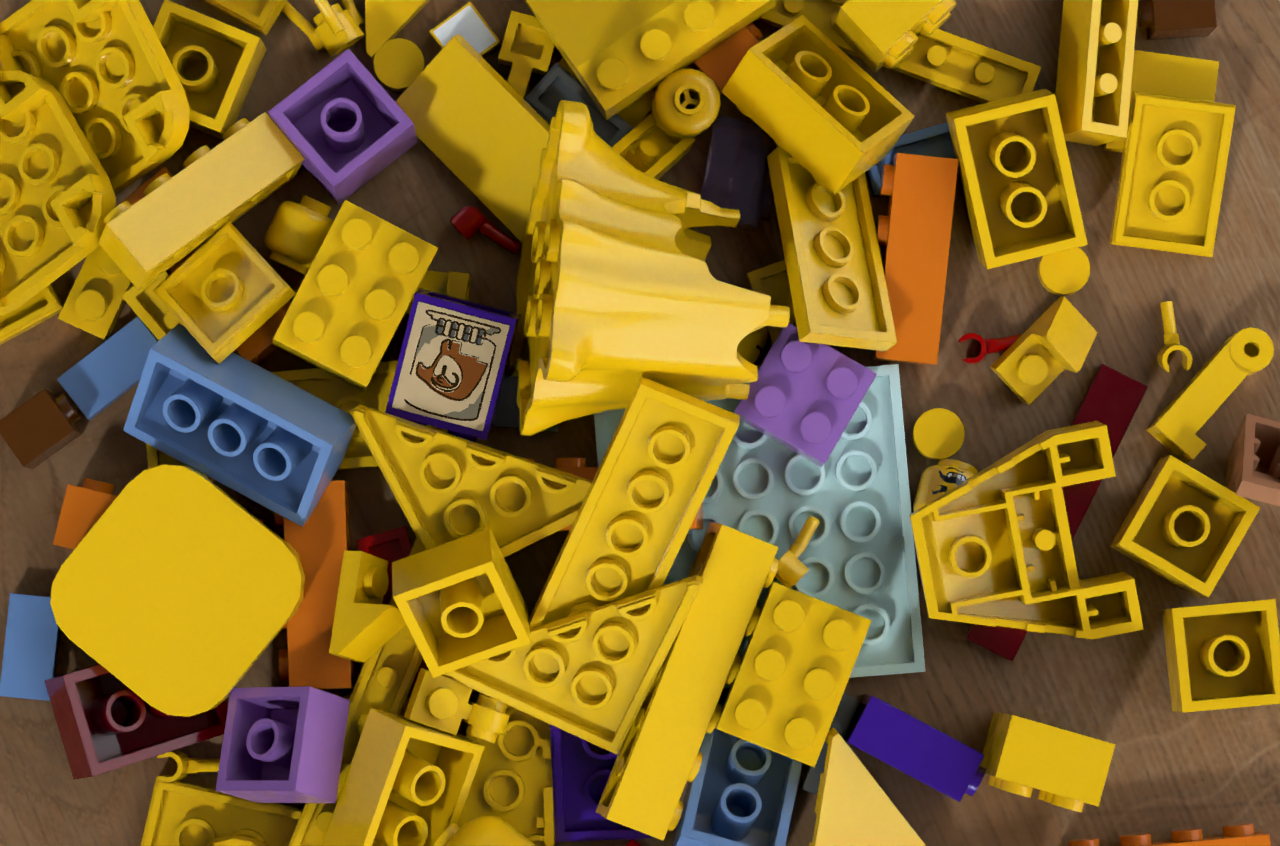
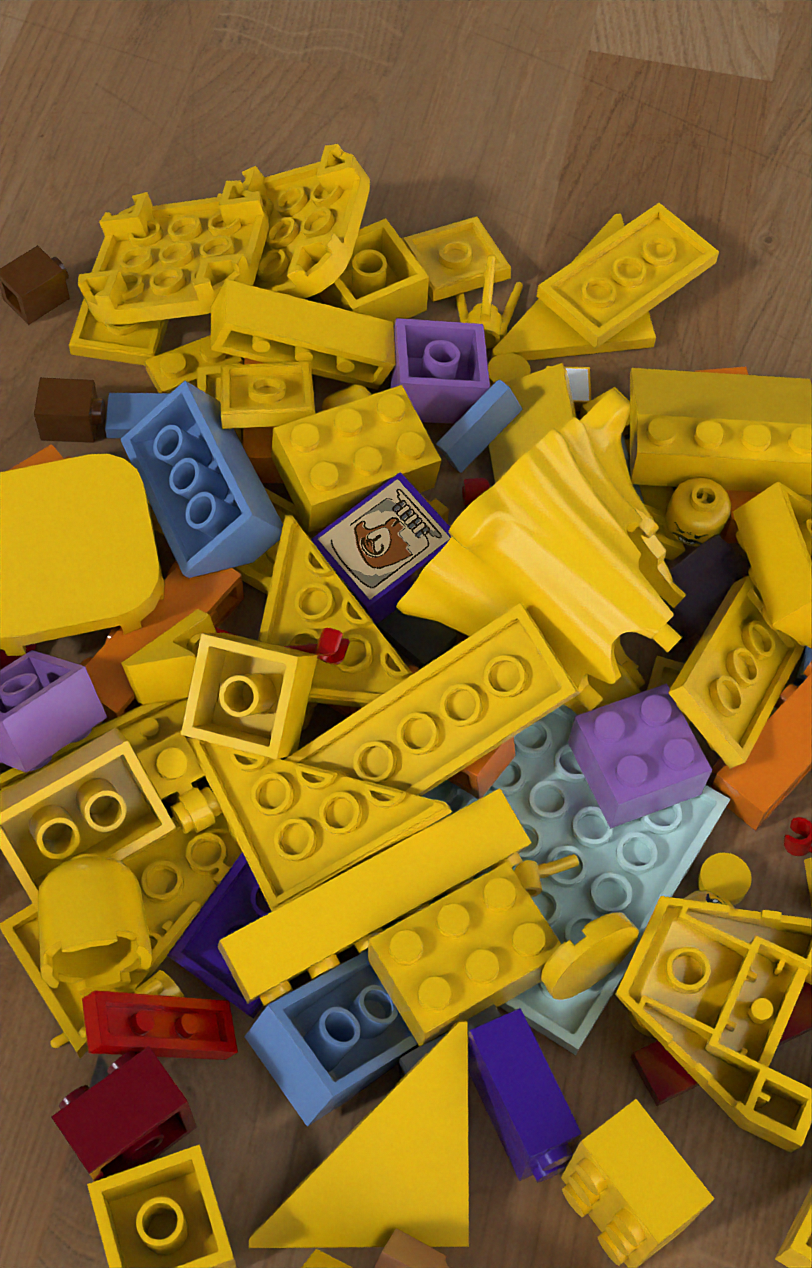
camera: 40 degrees right, 25 degrees down
(426, 159) = (479, 425): none -> medium blue tile
(492, 510) = (330, 647): none -> red hand
(889, 606) = (591, 959): none -> yellow tile

